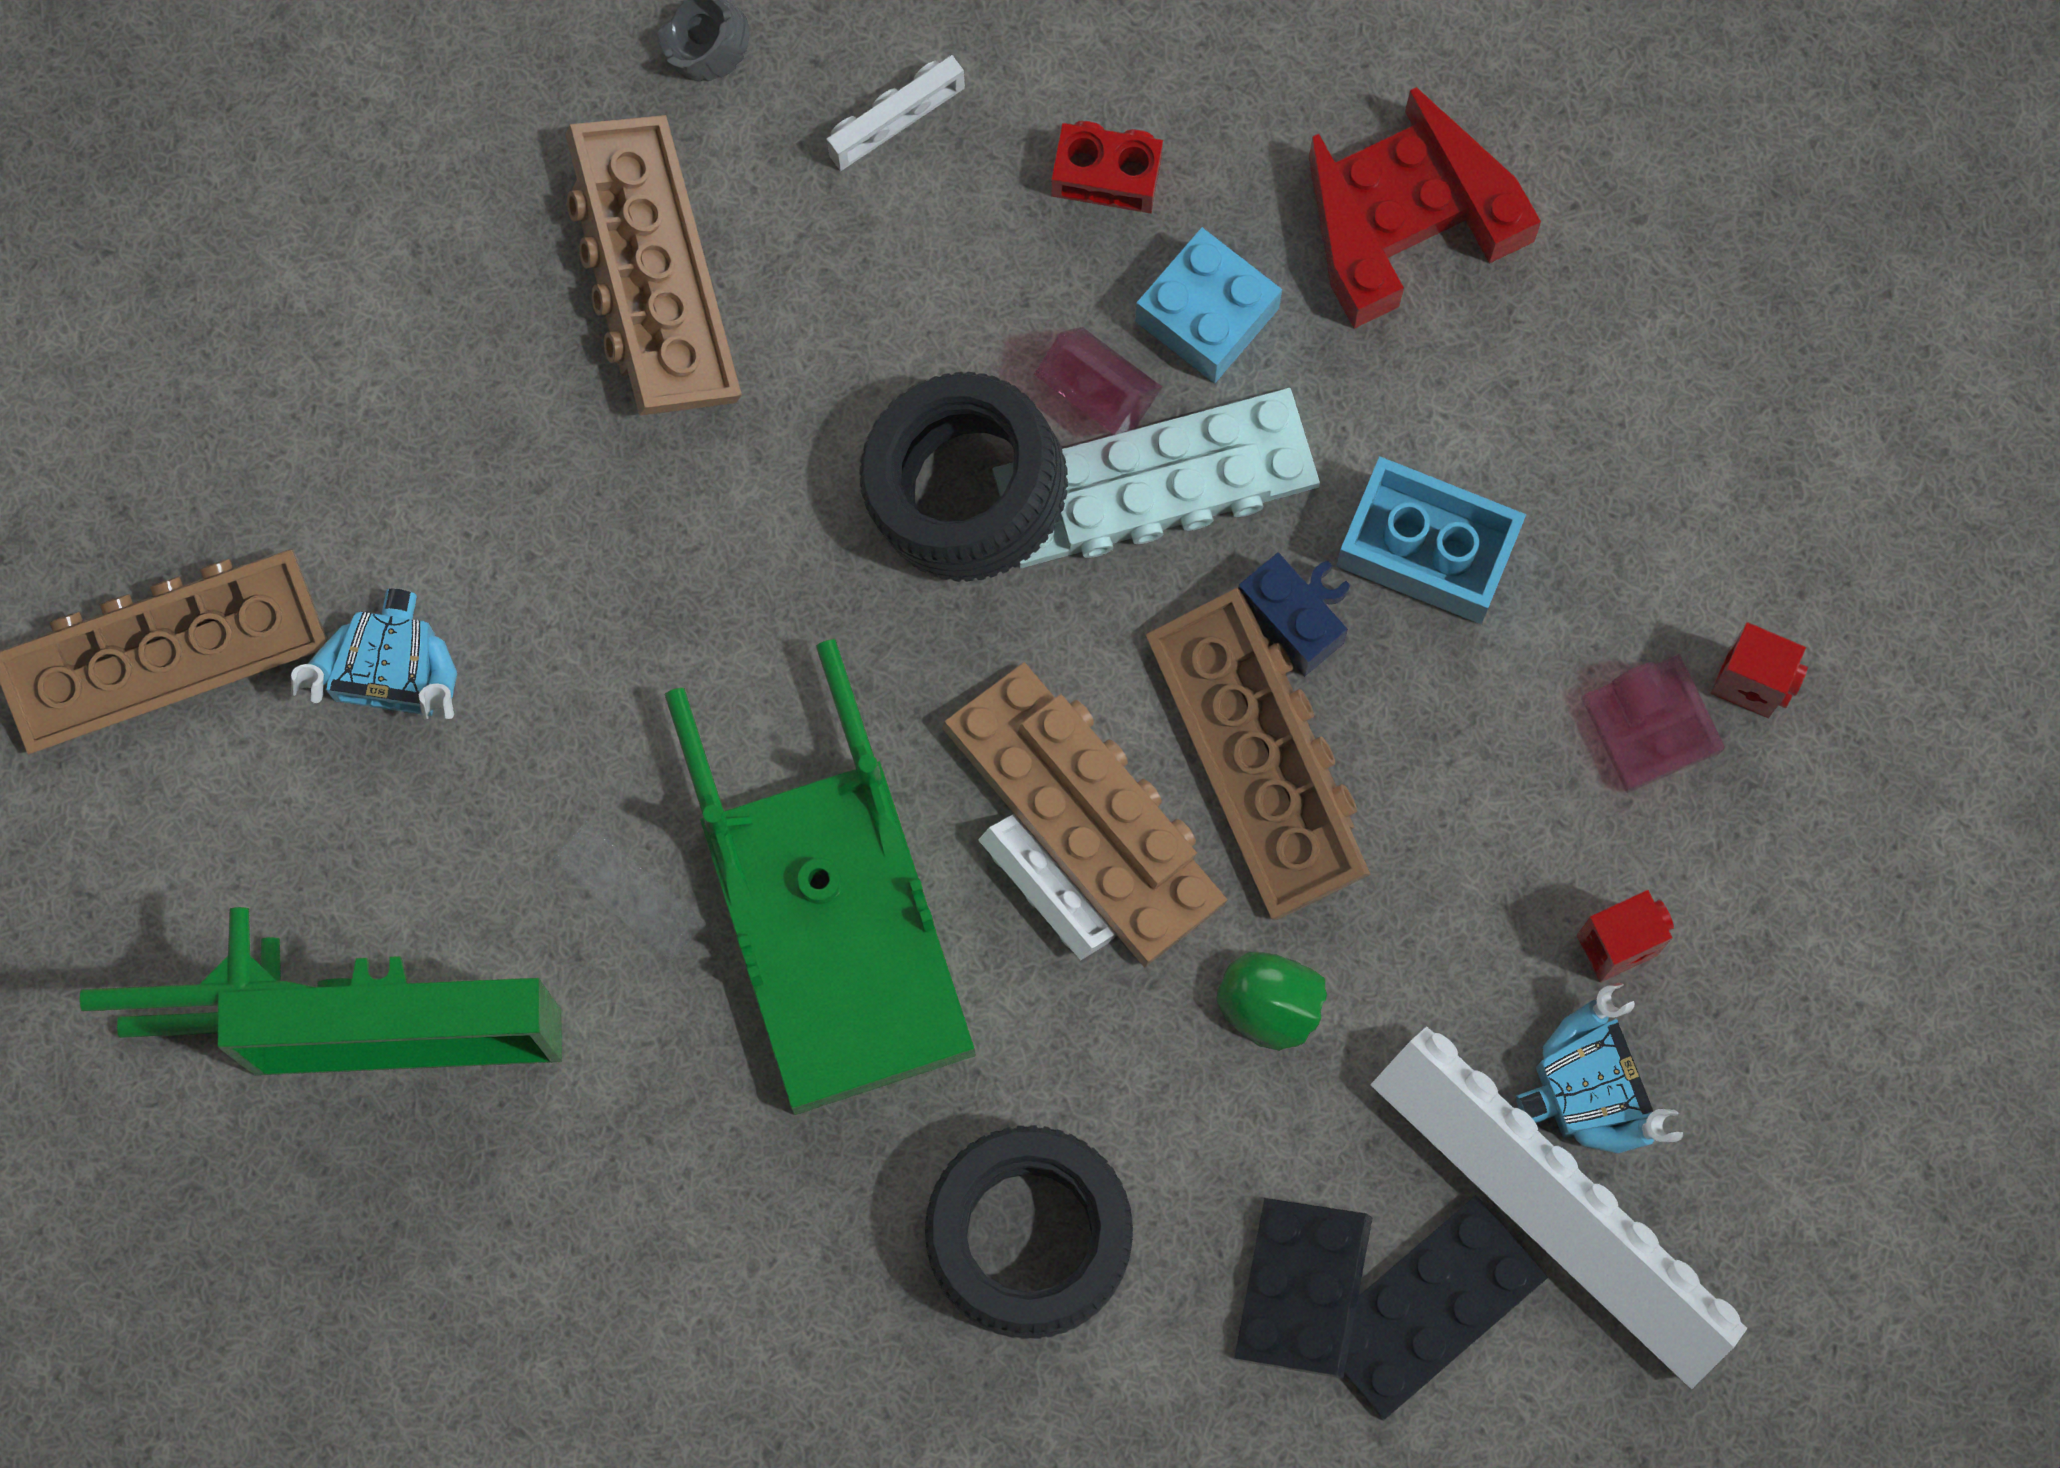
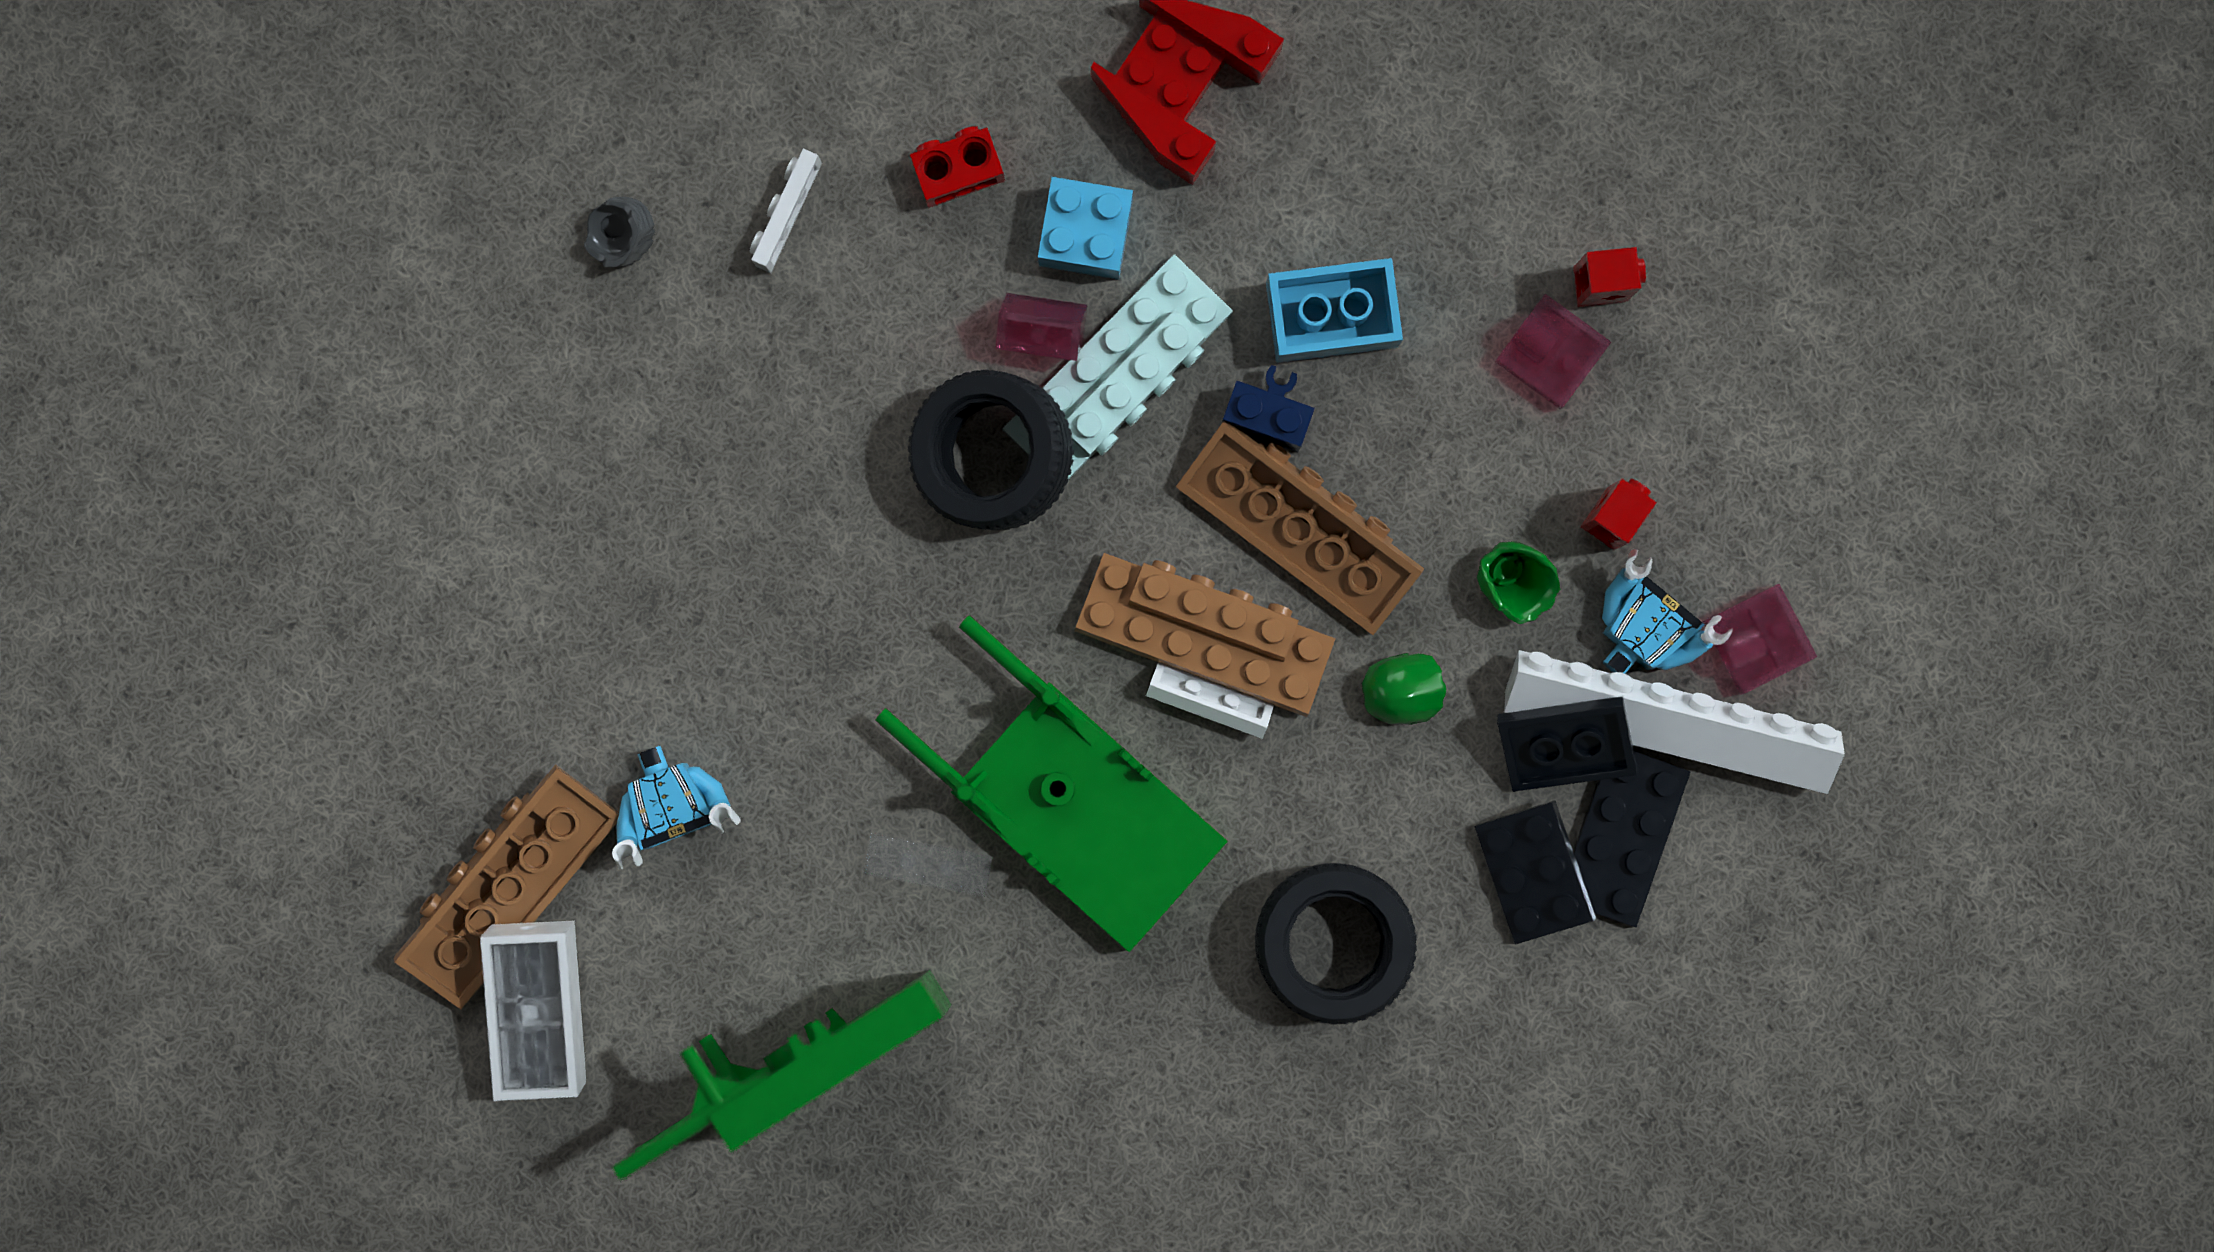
camera: 30 degrees left, 10 degrees up
(104, 796) = (533, 1010): none -> brick
(648, 266) = (679, 420): medium nougat plate -> none
(1421, 1159) = (1567, 744): none -> black plate
(1469, 948) = (1518, 581): none -> green hair
(1713, 1174) = (1763, 640): none -> clear pink plate

